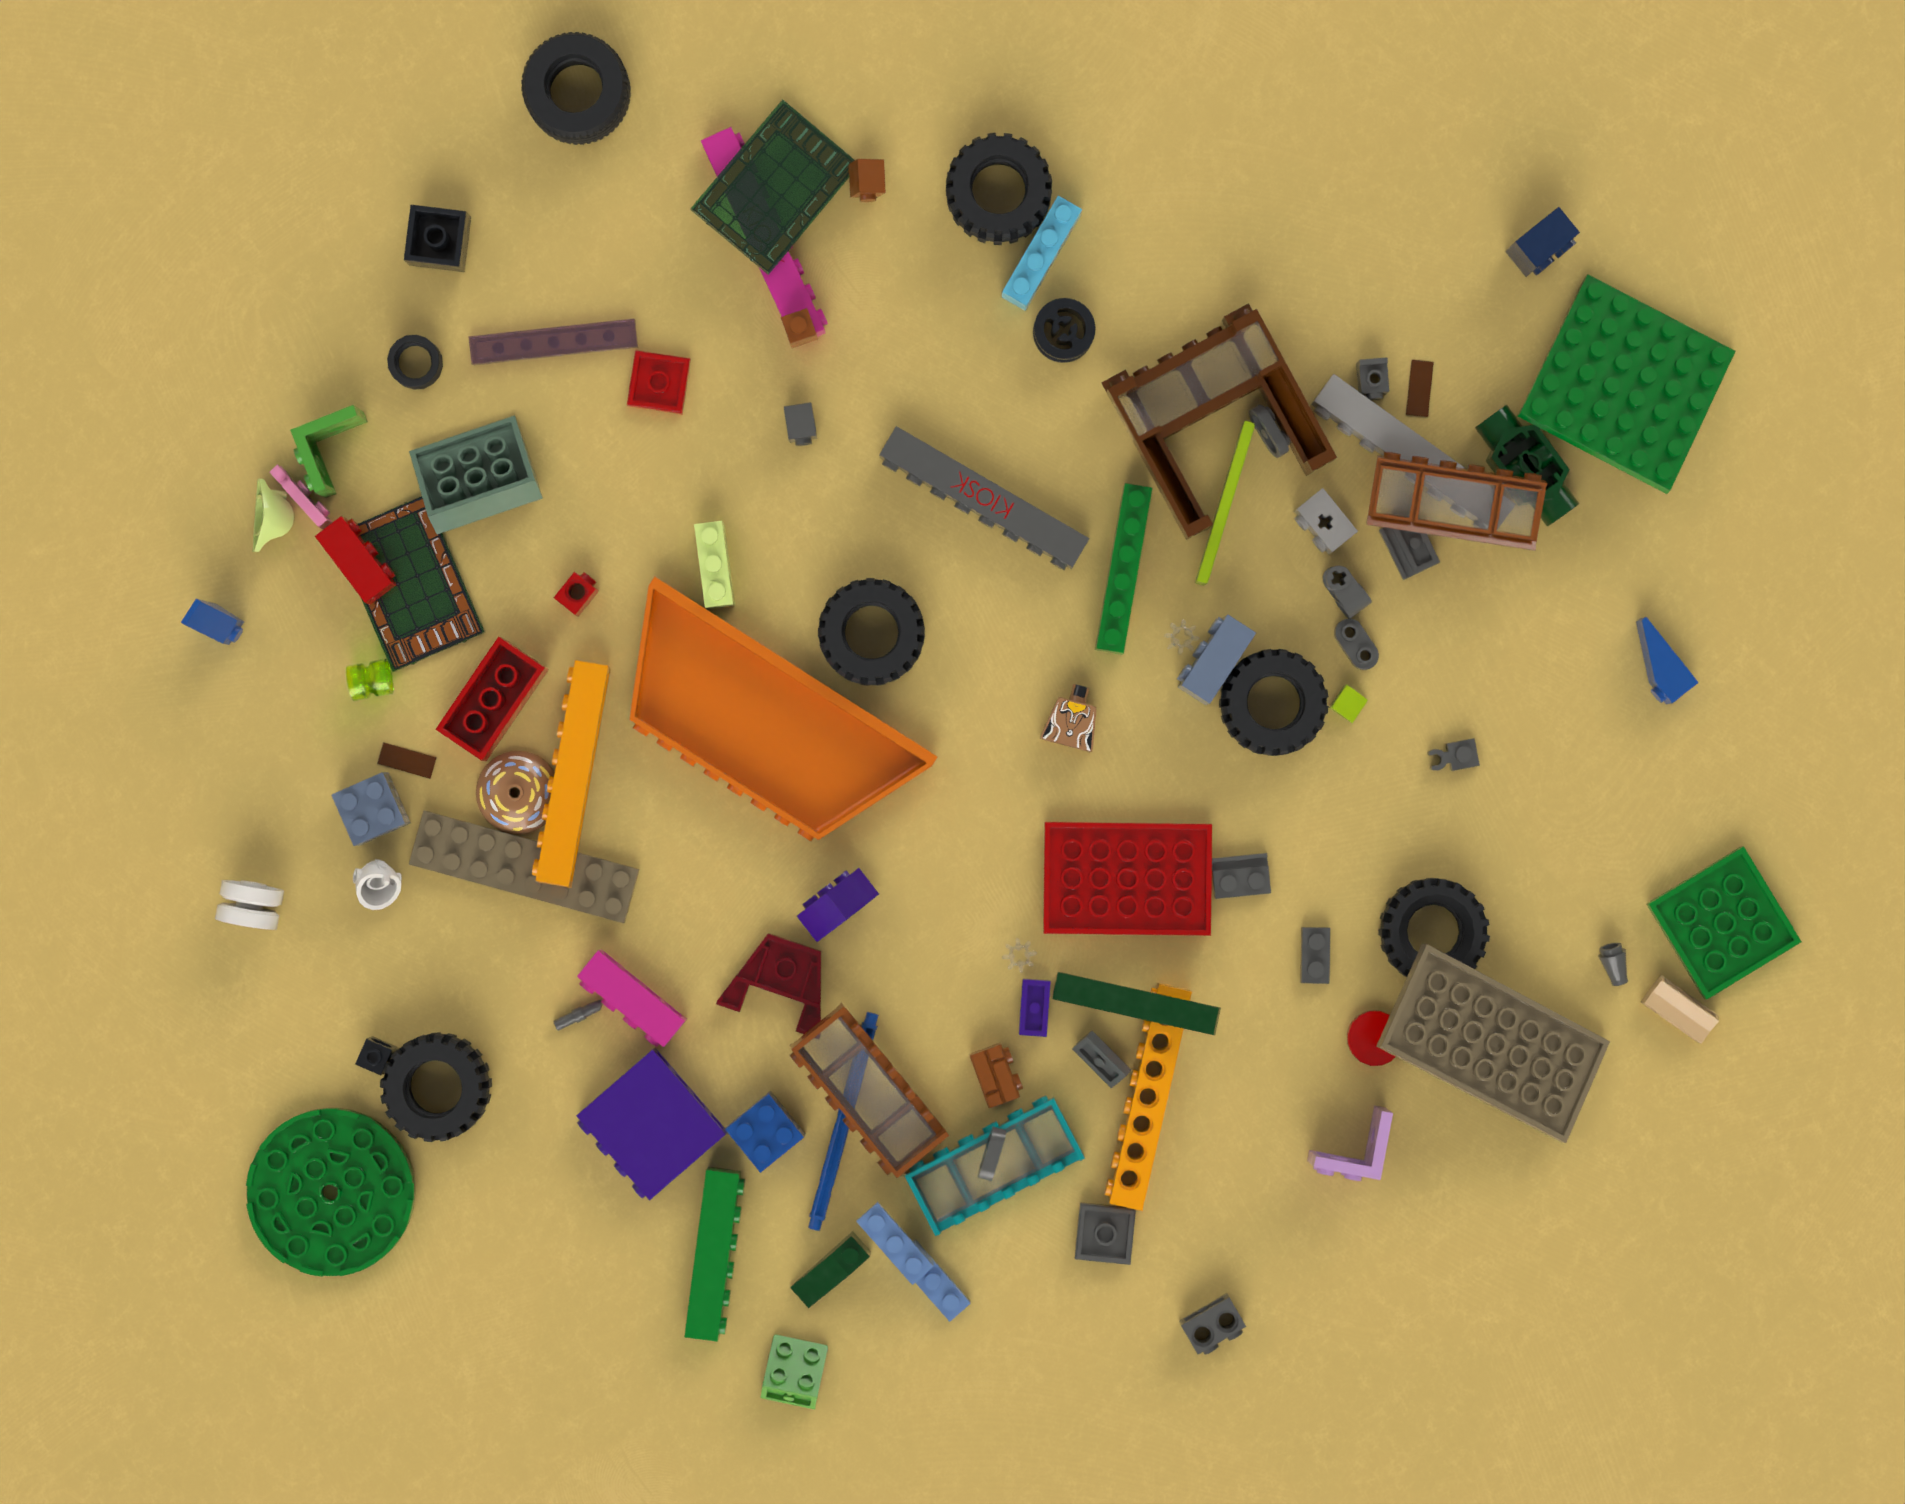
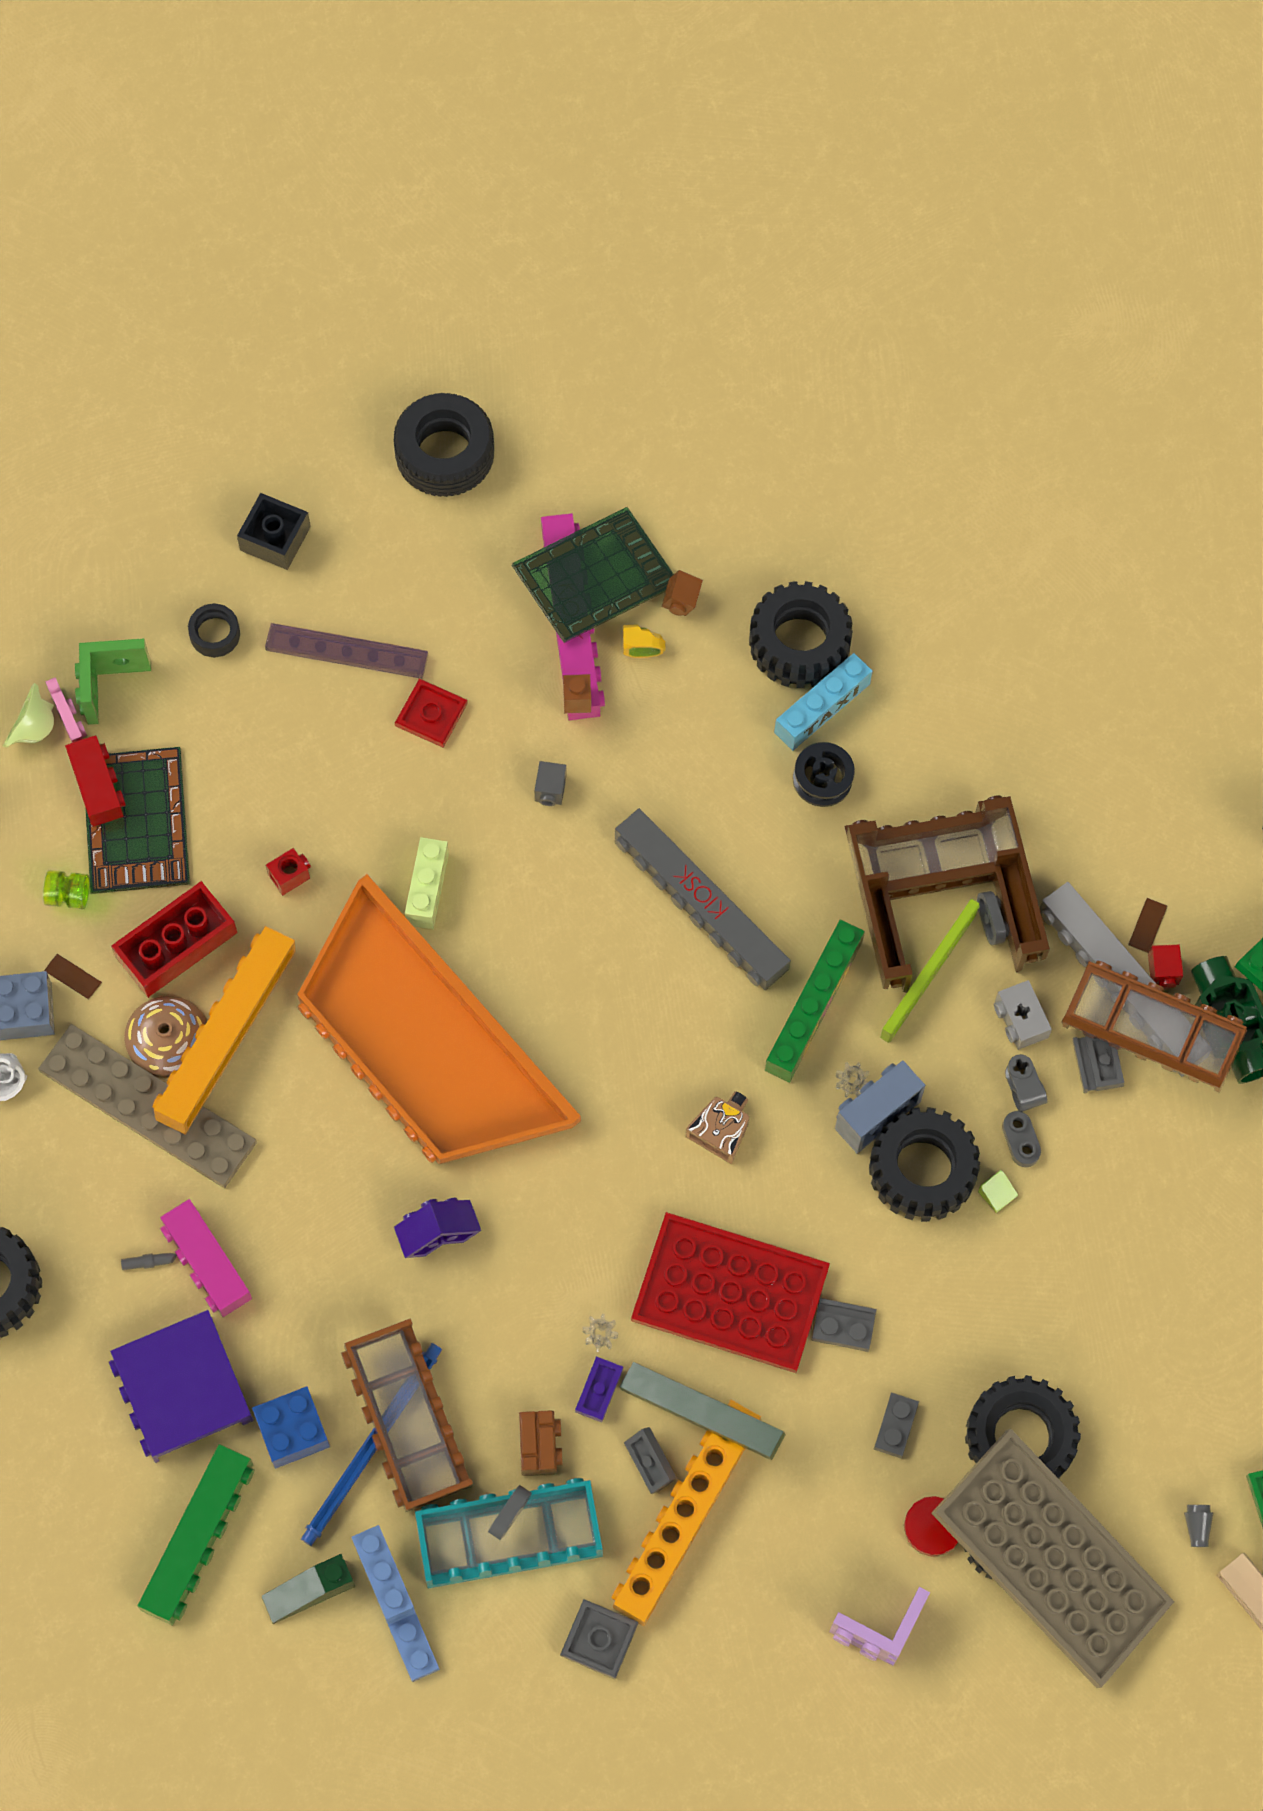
camera: 15 degrees right, 20 degrees down
(475, 475) = (232, 741): sand green slope -> none
(782, 969) = (362, 1276): dark red wing -> none
(794, 1371) = (234, 1683): bright green bracket -> none
(842, 242) = (641, 642): none -> yellow rock
(859, 595) = (555, 950): black tyre -> none
(1209, 1317) = (679, 1759): dark grey brick -> none
(1376, 366) = (1109, 890): dark grey brick -> none
(1449, 430) = (1165, 965): none -> red brick
(1458, 755) = (1095, 1273): dark grey plate -> none

